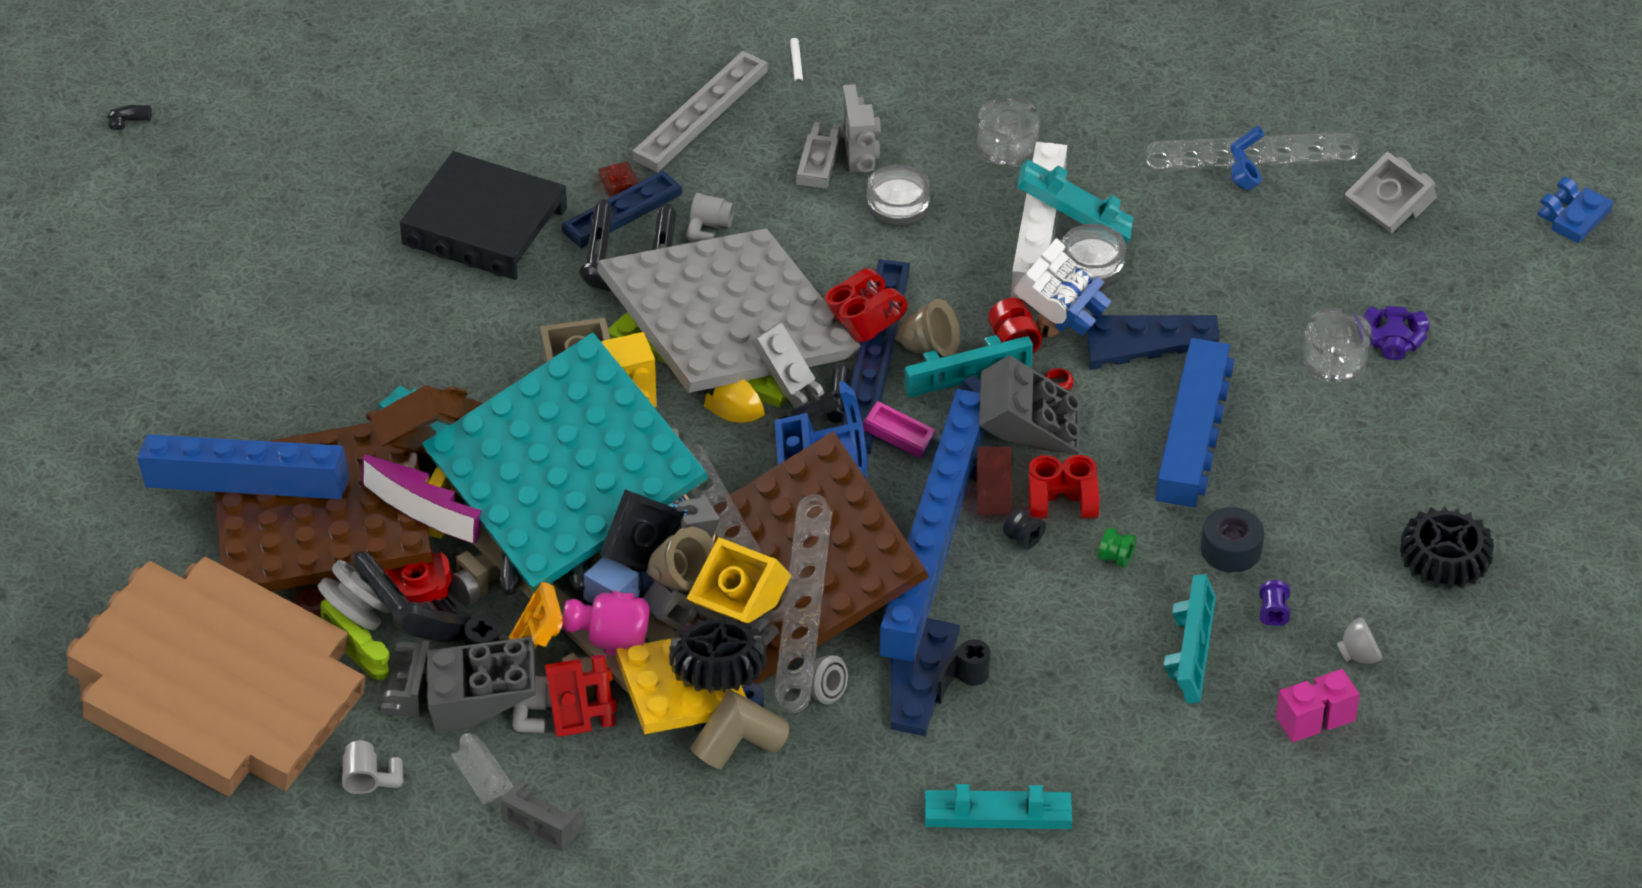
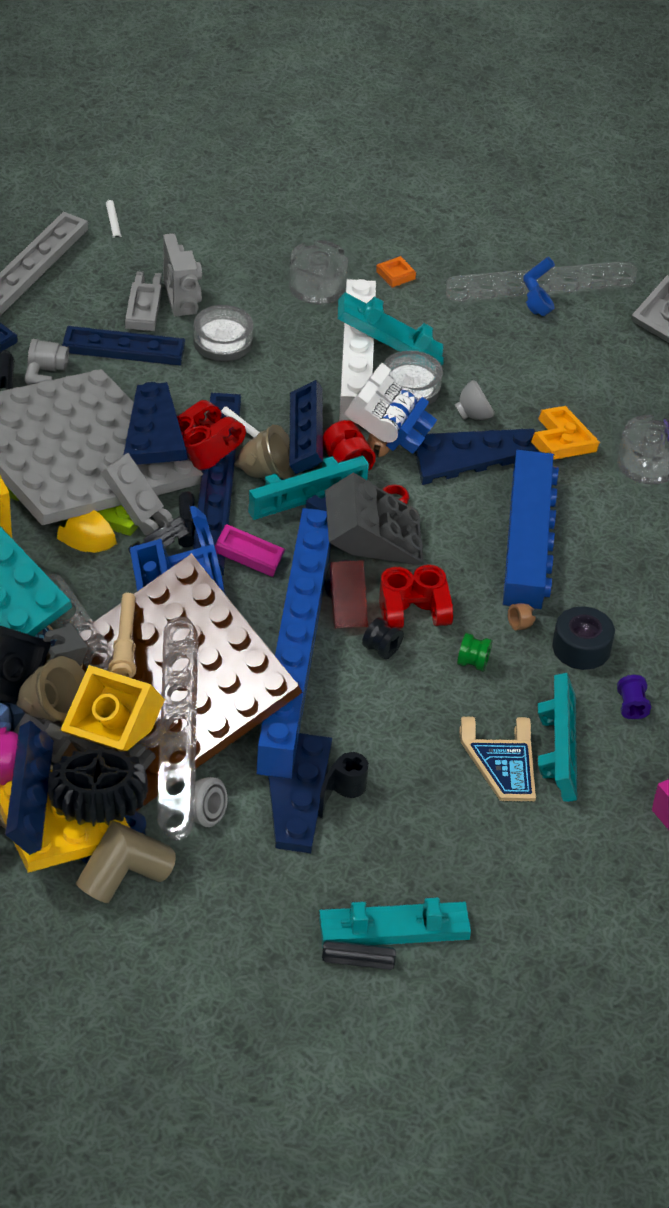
camera: 10 degrees left, 0 degrees up
(652, 652) = (29, 788): none -> dark blue plate
(755, 521) = (123, 646): none -> tan pin
(793, 203) = (124, 345): none -> dark blue tile
(813, 294) = (154, 427): none -> dark blue wing
(905, 292) = (249, 429): none -> white piece
(959, 835) = (359, 954): none -> black axle
(973, 302) = (306, 427): none -> dark blue plate
(1094, 133) = (396, 271): none -> orange tile
(1129, 660) = (503, 763): none -> flag
(1156, 284) = (474, 403): none -> light grey brick
(1171, 513) = (521, 616): none -> medium nougat hinge
(1249, 325) = (565, 434): none -> light orange plate

